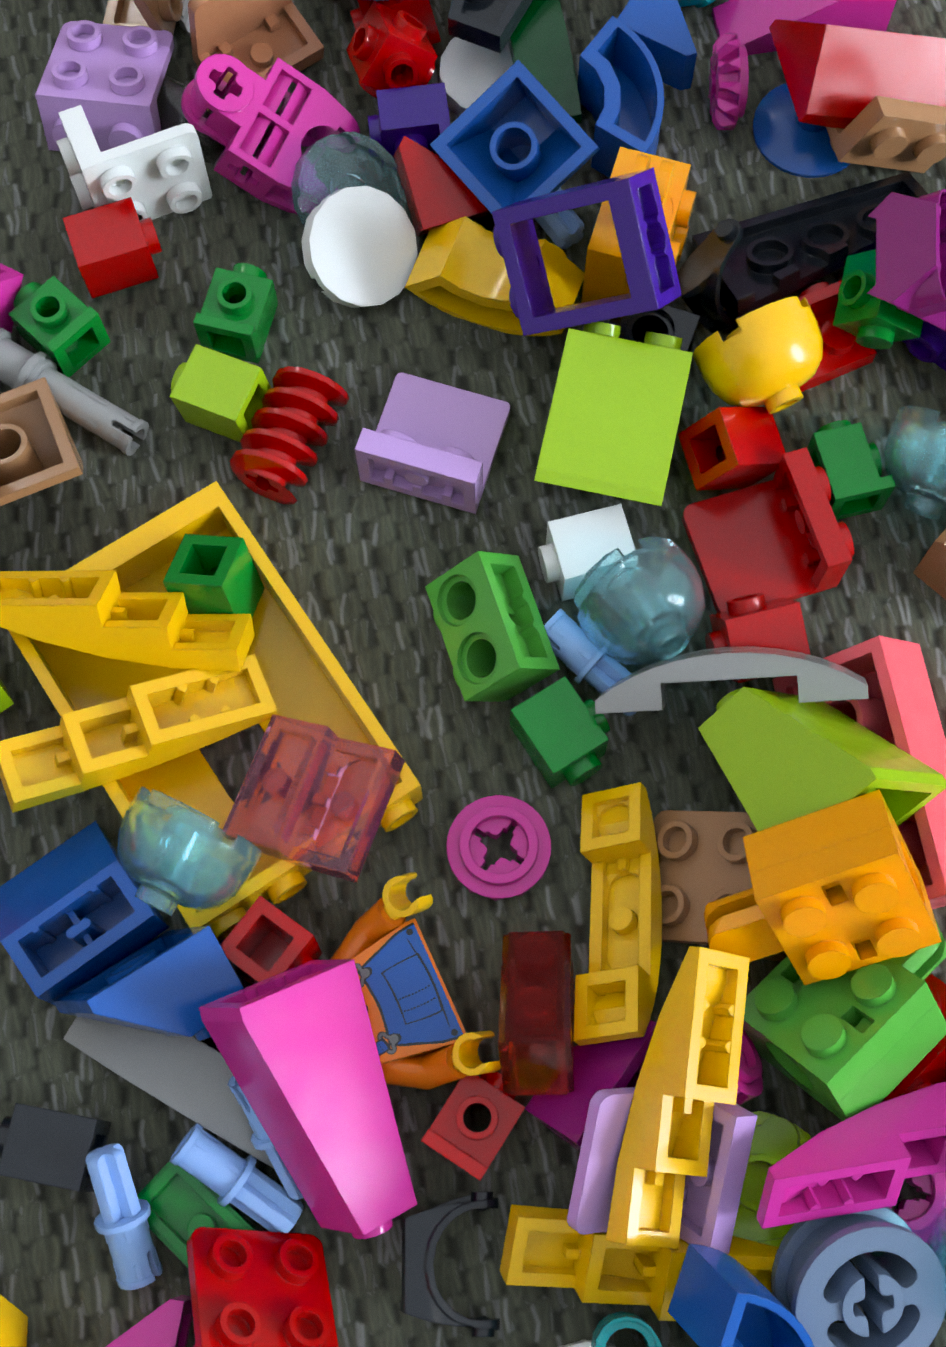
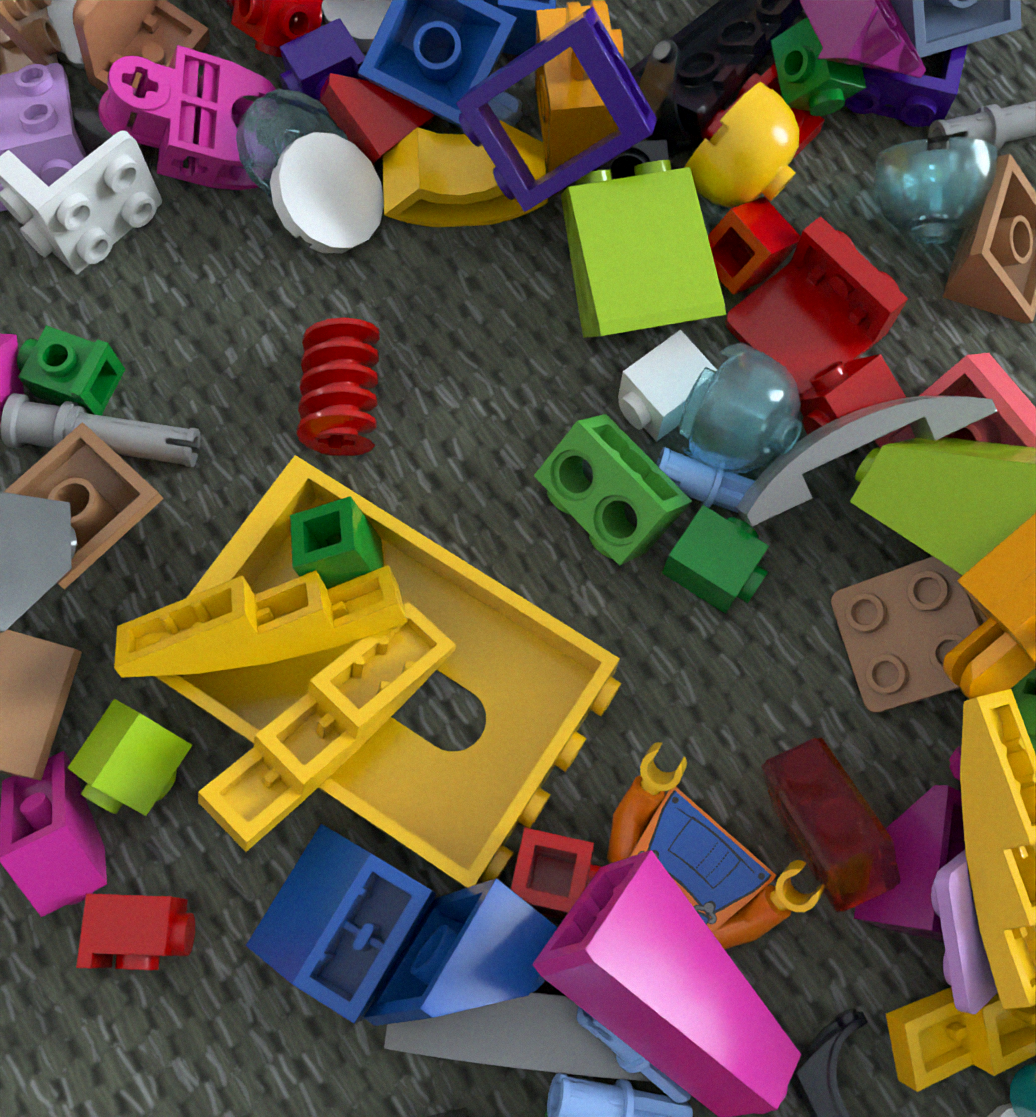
camera: 25 degrees left, 0 degrees up
(113, 247) = (92, 277): red brick -> none
(181, 854) = (437, 821): clear light blue cylinder -> none
(218, 392) = (257, 373): lime brick -> none
(237, 312) = (237, 296): green brick -> none
(314, 797) = (528, 713): clear pink slope -> none
(433, 442) = (476, 344): lavender bracket -> none
(471, 1149) = (796, 972): red brick -> none
(491, 818) = (731, 670): dark pink gear -> none
(625, 917) = (855, 704): yellow slope -> none
(851, 467) = (858, 218): green brick -> none

